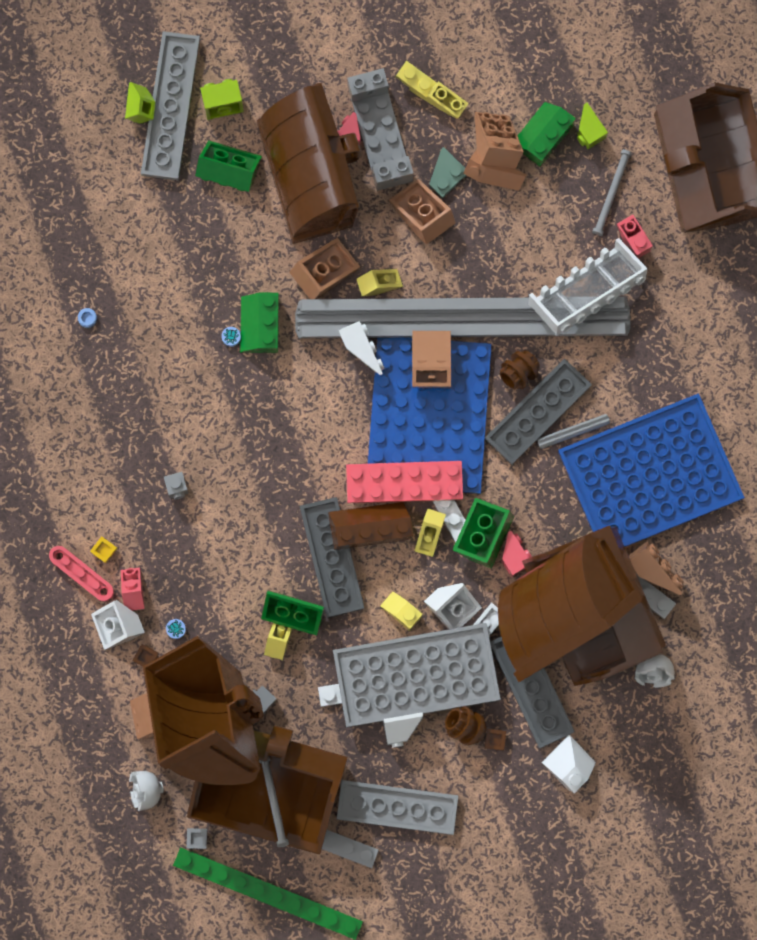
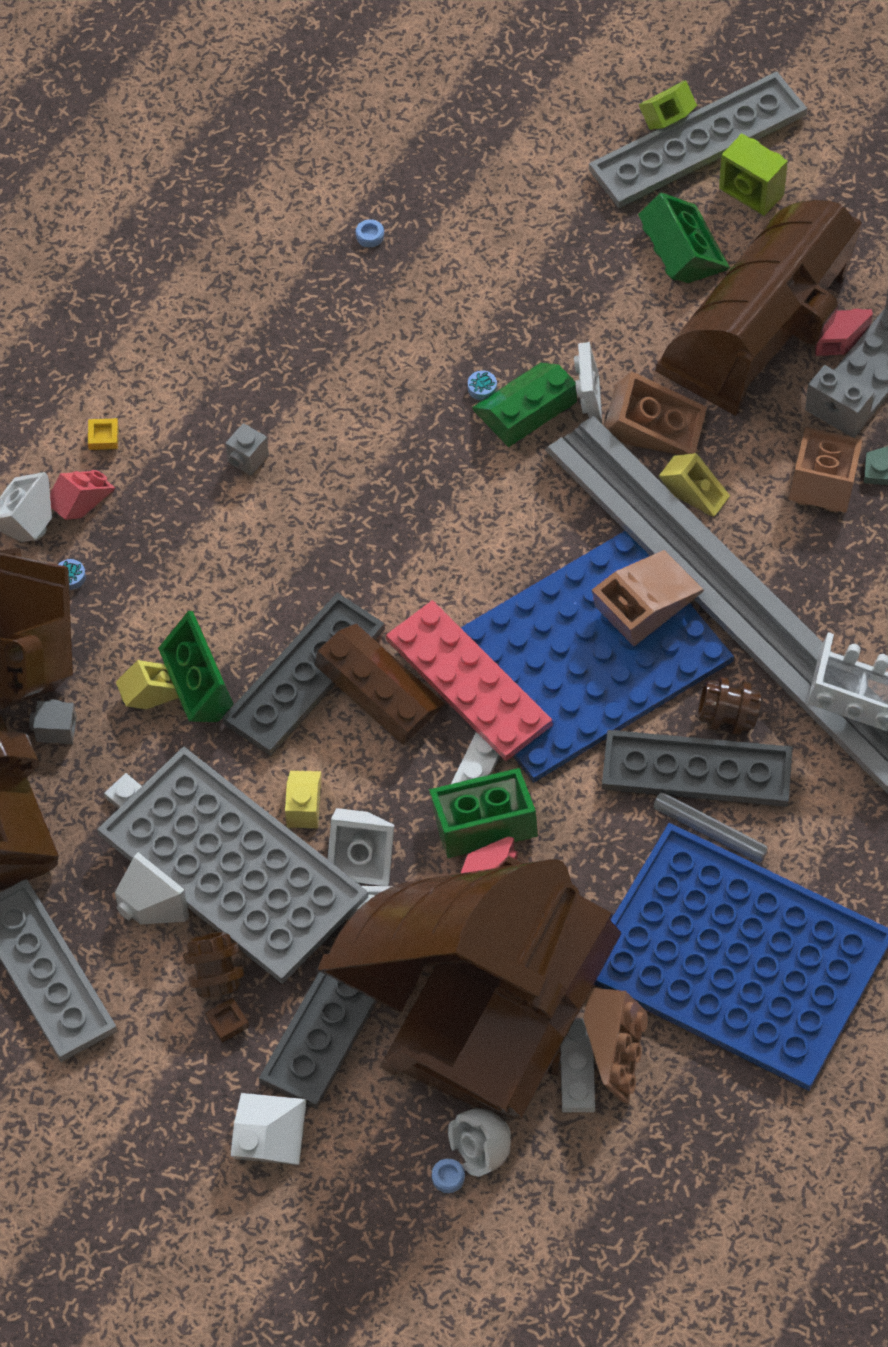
camera: 55 degrees right, 20 degrees down
(81, 573) = (54, 429): coral plate -> none
(276, 283) = (589, 383): none -> white plate
(357, 343) = (593, 502): white slope -> none
(430, 532) = (432, 755): light yellow slope -> none
(655, 697) = (448, 1175): none -> light blue tile

